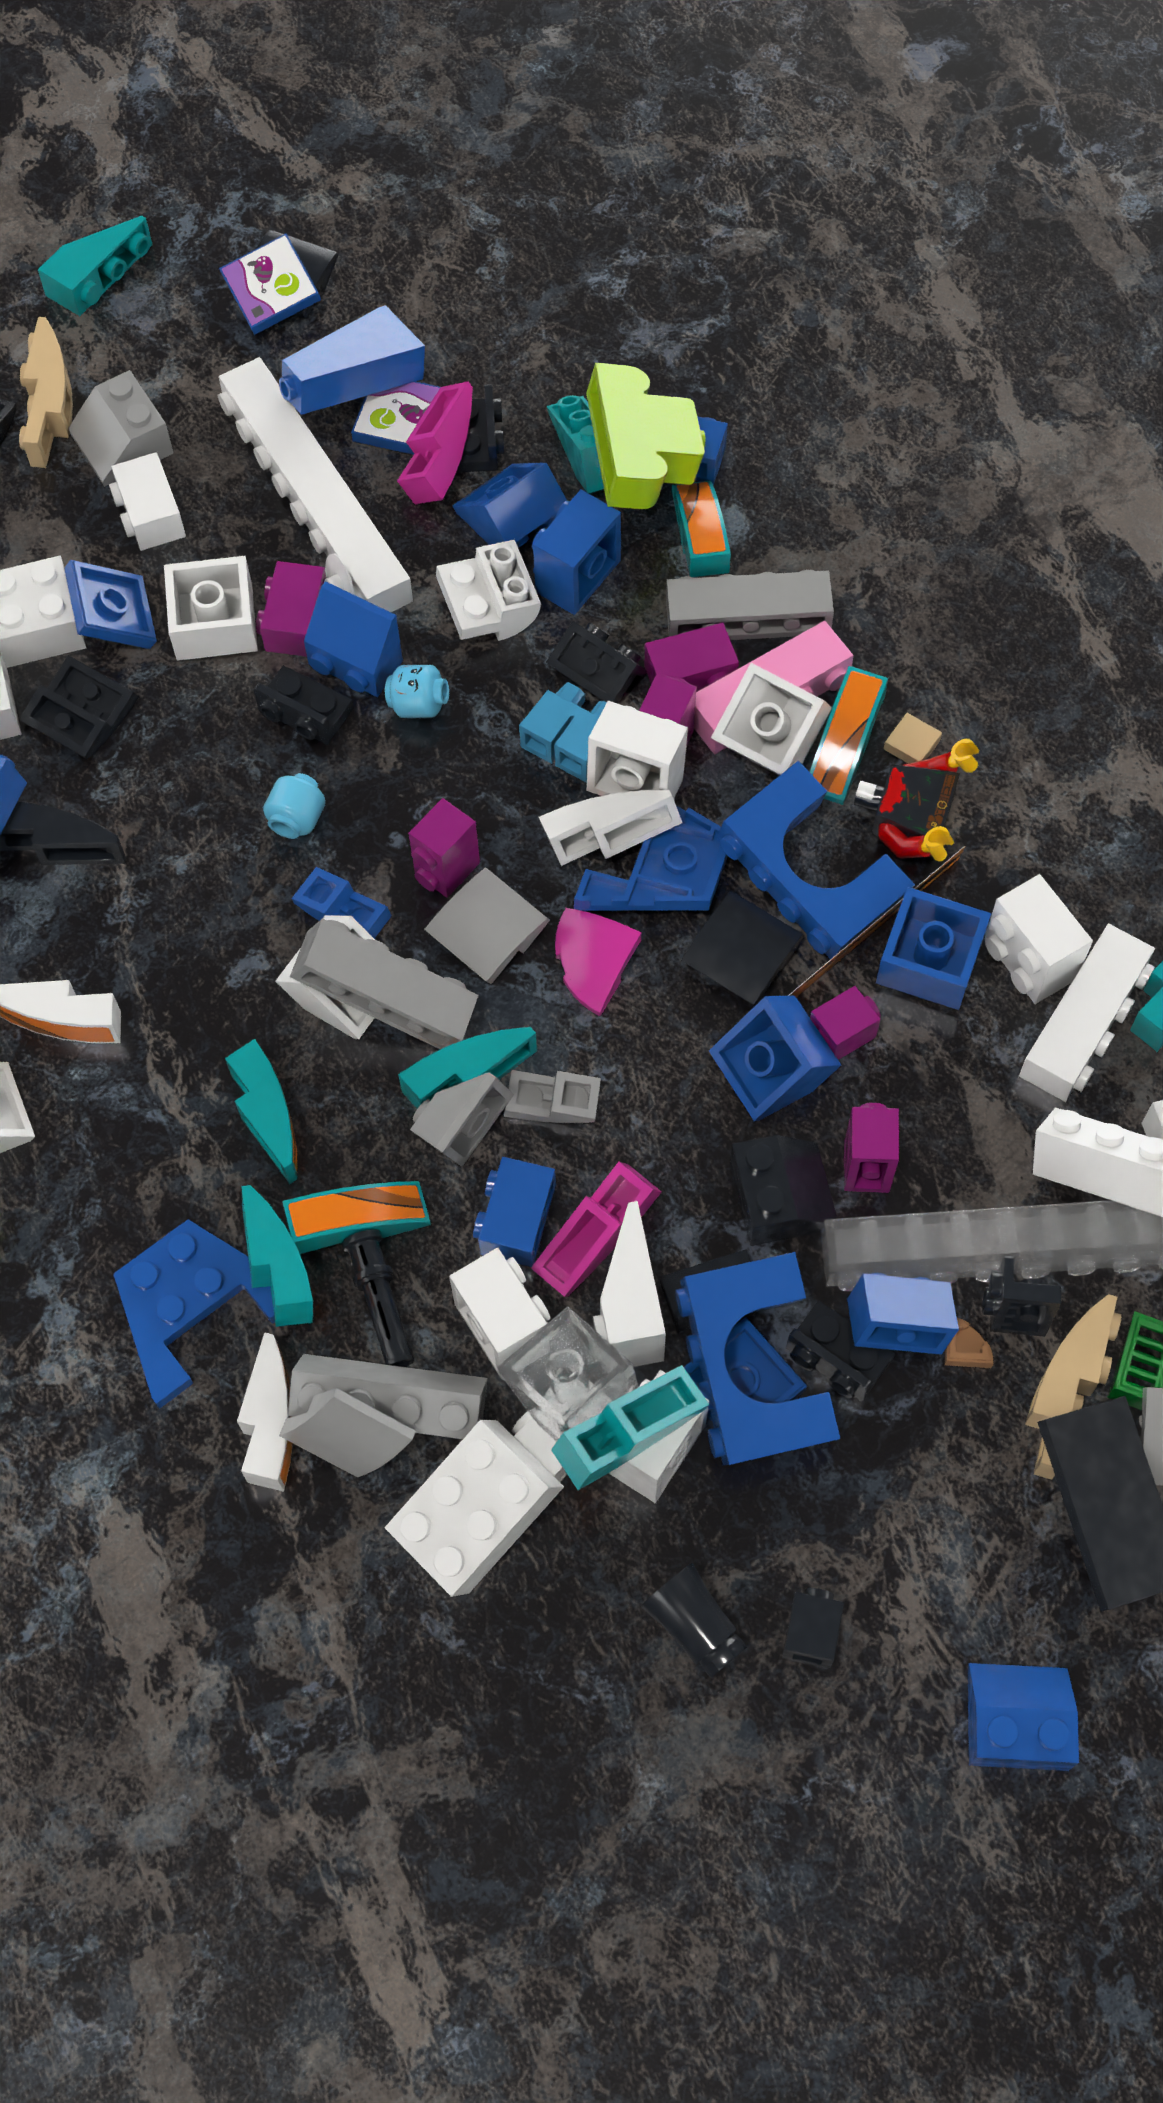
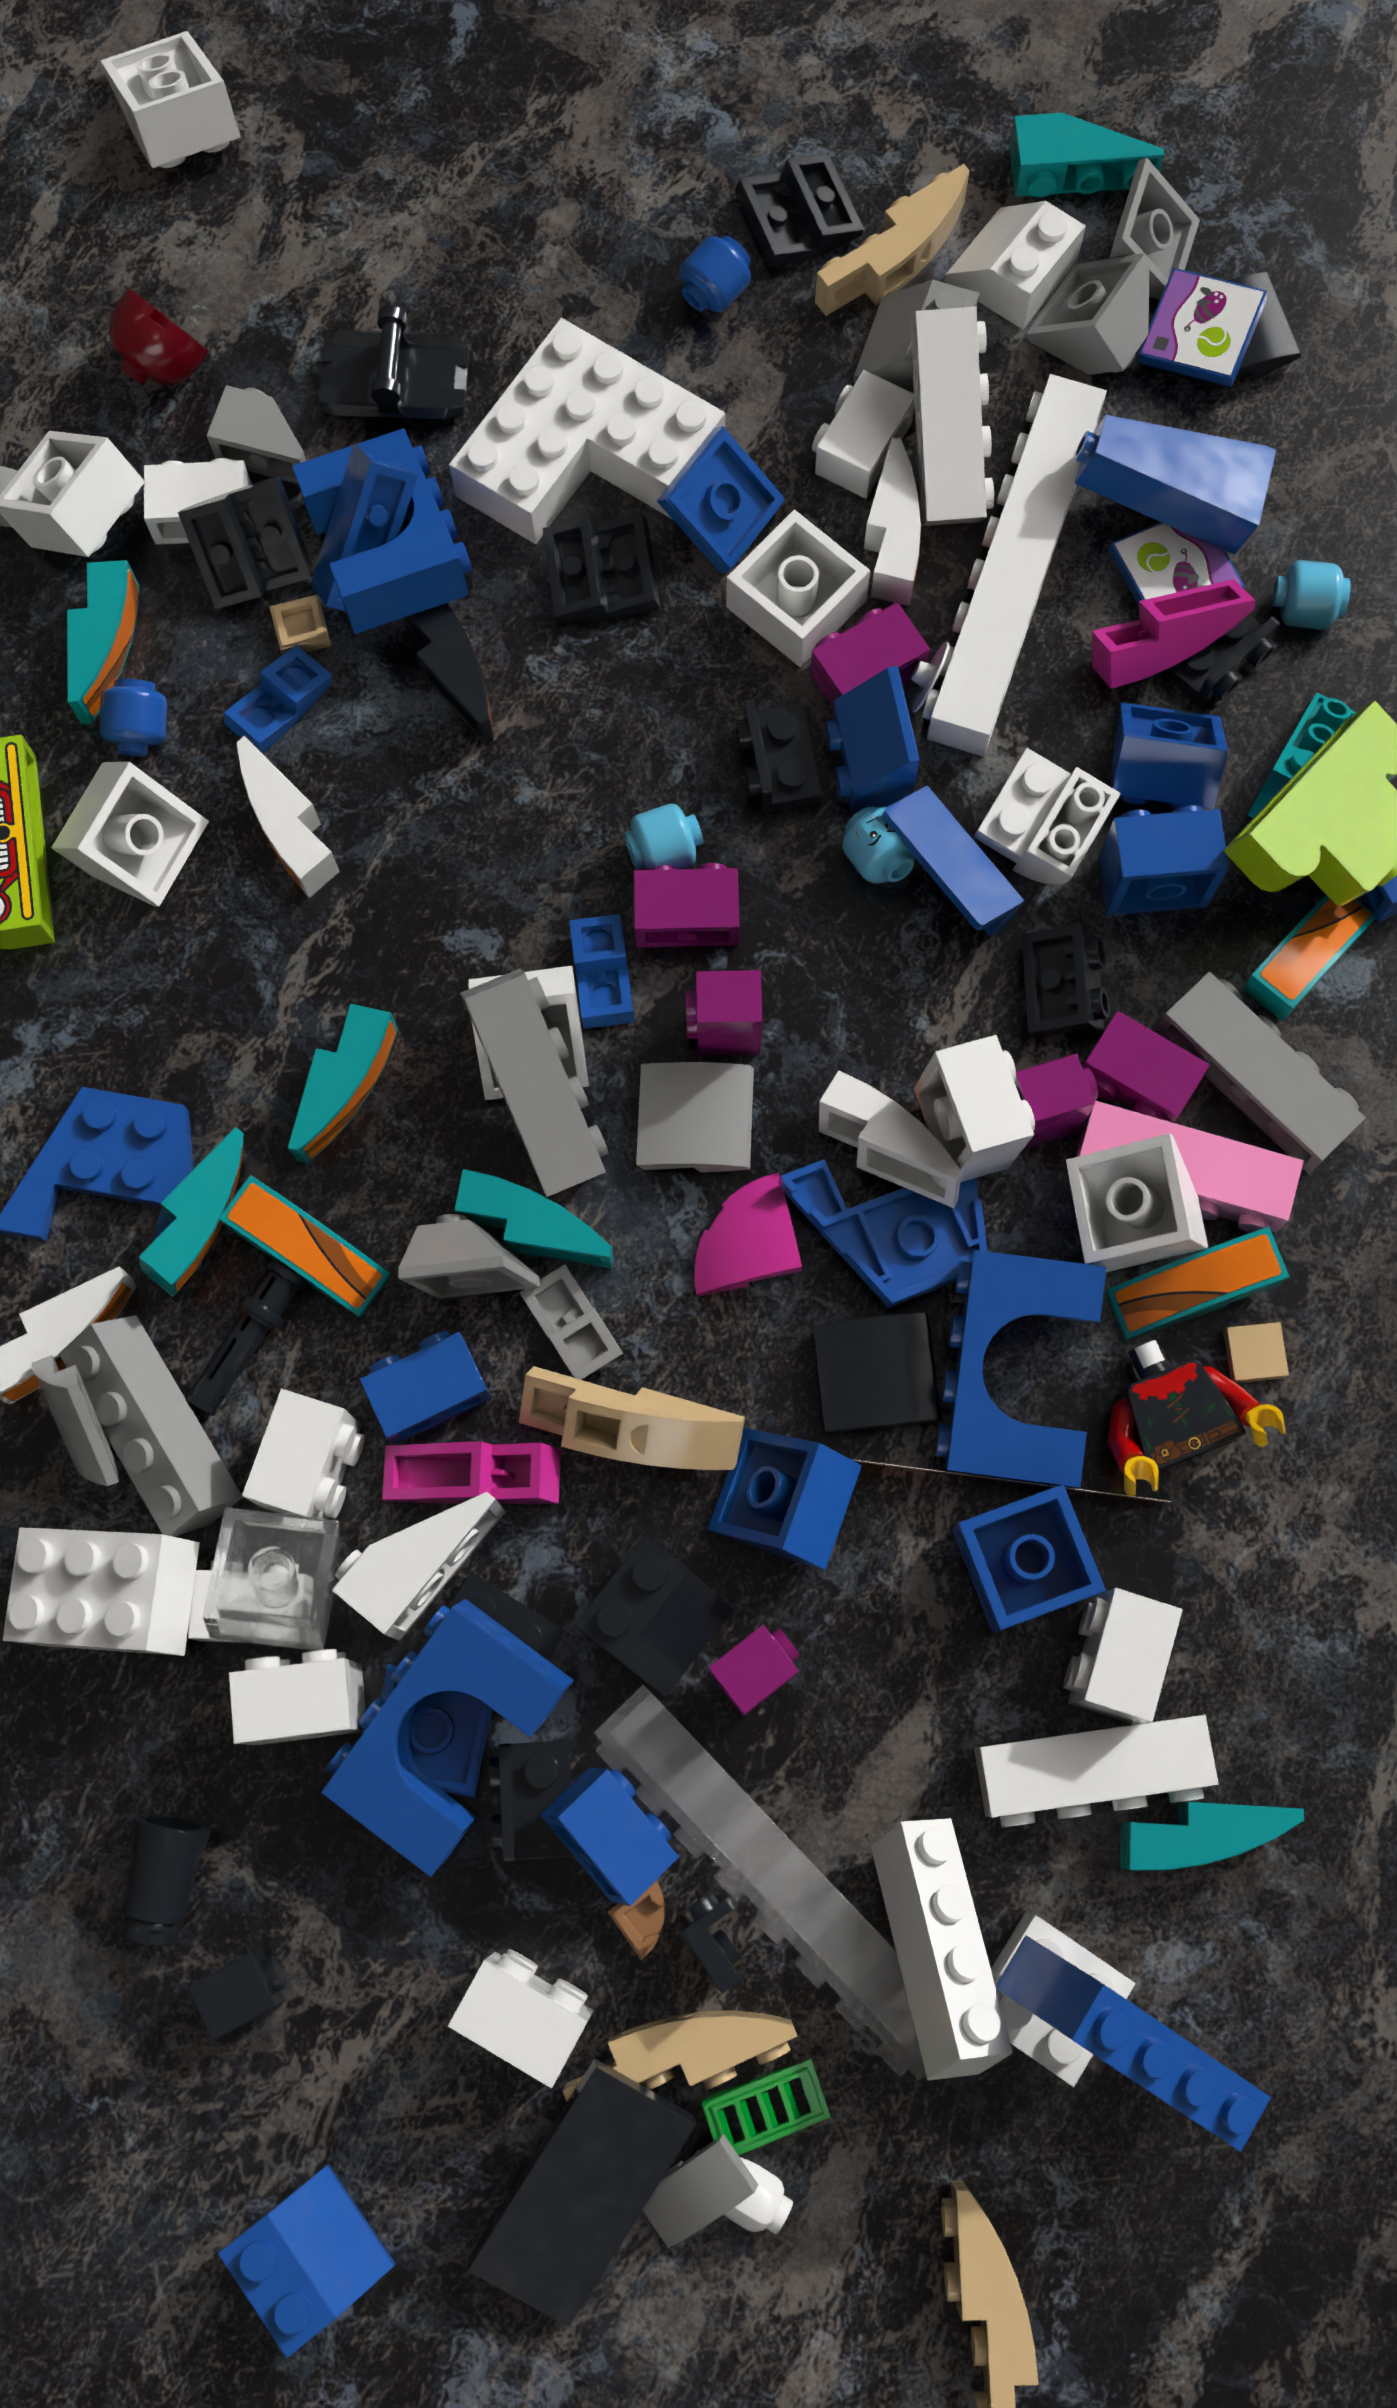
camera: 50 degrees right, 10 degrees up
(123, 338) = (1019, 259): none -> white slope
(183, 268) = (1155, 224): none -> light grey slope
(192, 443) = (950, 415): none -> white brick
(203, 329) = (1097, 315): none -> light grey slope
(224, 529) = (895, 528): none -> white slope
(349, 825) = (686, 906): none -> magenta brick
(469, 657) = (954, 860): none -> panel
(488, 359) = (1311, 594): none -> medium azure head
(561, 729) = (959, 1006): dark azure hips -> none
(628, 1426) = (258, 1679): teal slope -> none
(650, 1108) = (628, 1427): none -> tan slope
(847, 1021) = (878, 1537): magenta brick -> none
(975, 1449) = (522, 2015): none -> white brick

